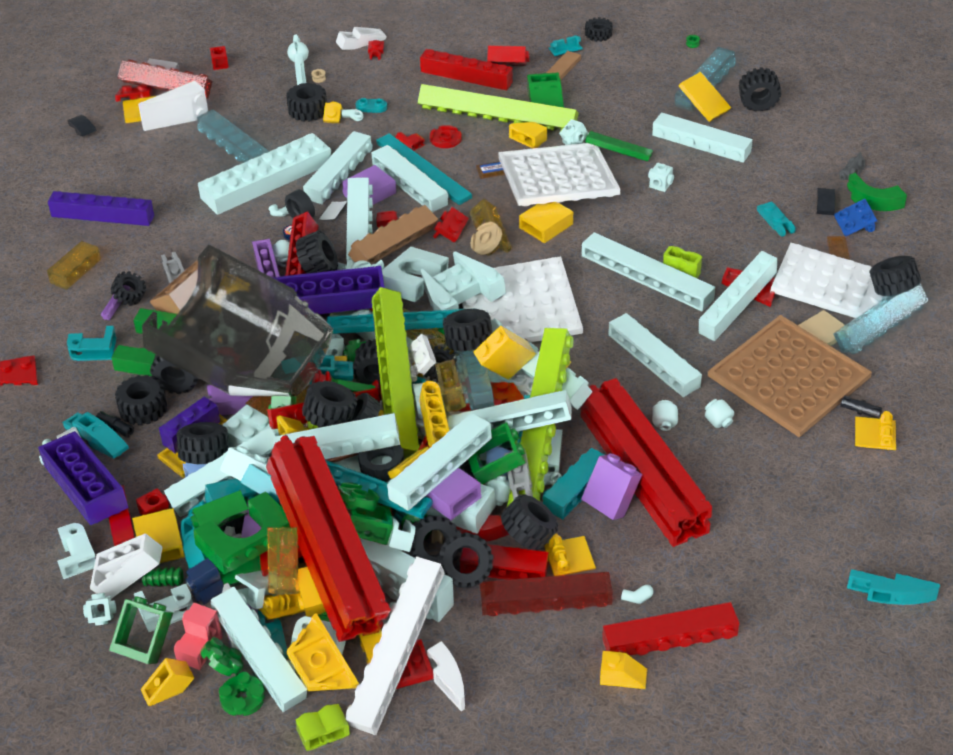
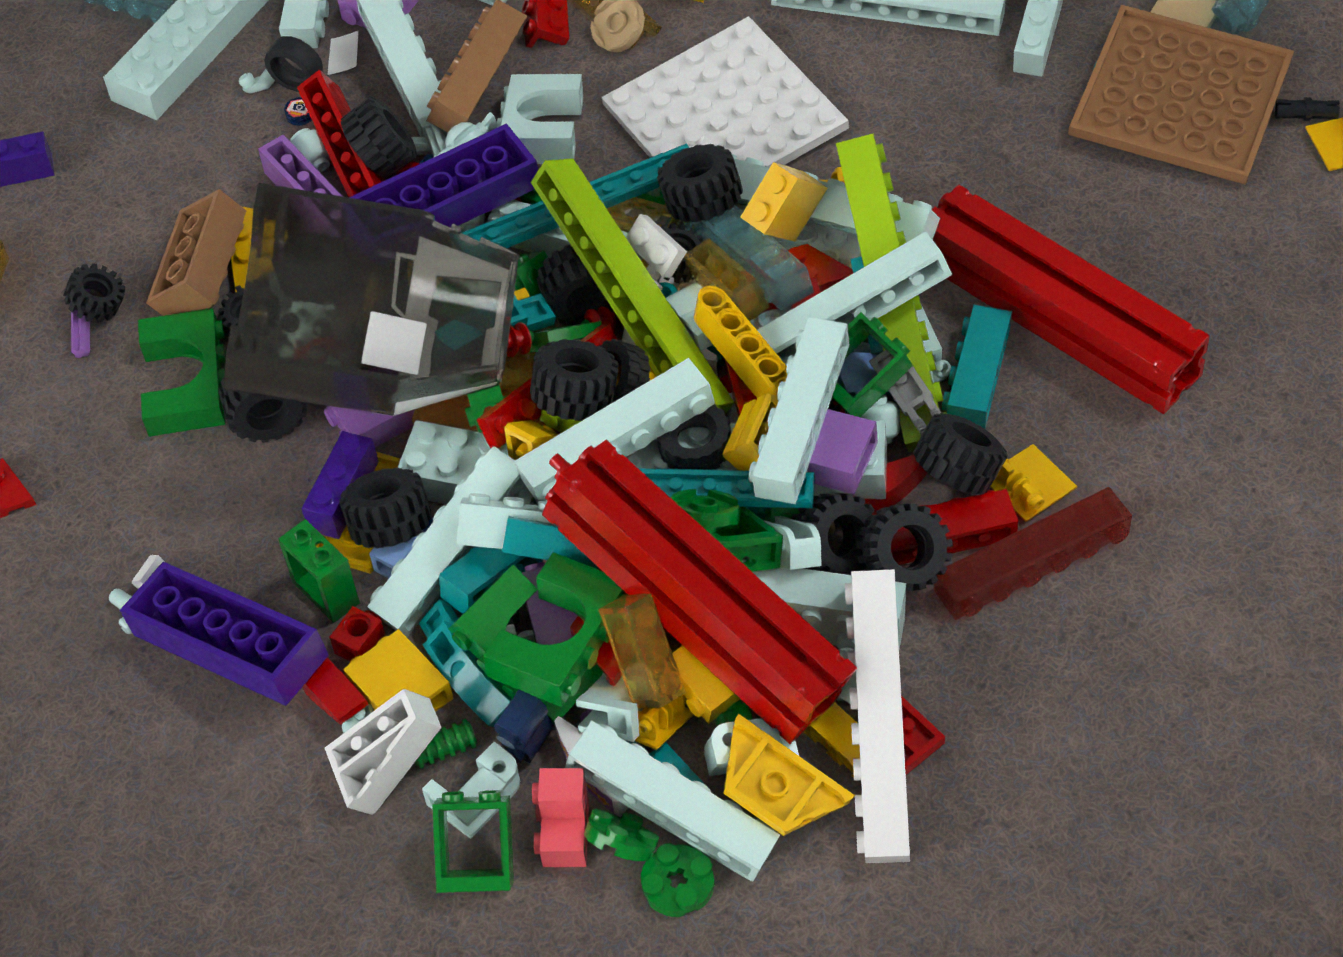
camera: 20 degrees left, 10 degrees up
(77, 543) = (281, 747): light aqua piece -> none
(92, 347) = (92, 413): teal piece -> none
(92, 612) = (389, 839): light aqua brick -> none
(97, 433) = (196, 551): teal slope -> none
(116, 424) = (209, 525): black pin -> none
(141, 399) = (239, 489): black tyre -> none
(149, 462) = (319, 572): none -> green window
(167, 681) = (554, 906): yellow slope -> none
(173, 267) = (143, 234): light grey hinge -> none
(254, 358) = (394, 343): none -> white sticker
(322, 726) = (829, 881): lime brick -> none
(384, 218) = (440, 41): red piece -> none
(447, 674) = (967, 730): white slope -> none
(462, 282) = (626, 108): light aqua wedge -> none
(611, 486) = (1041, 354): medium lavender brick -> none
(622, 671) = (1205, 628): yellow slope -> none
(638, 596) = (1163, 505): light aqua arm -> none
(655, 355) = (974, 127): light aqua brick -> none
(665, 415) = (1044, 215): light aqua head -> none
(672, 630) = (1238, 543): red brick -> none
(719, 413) = (1119, 187): light aqua head -> none

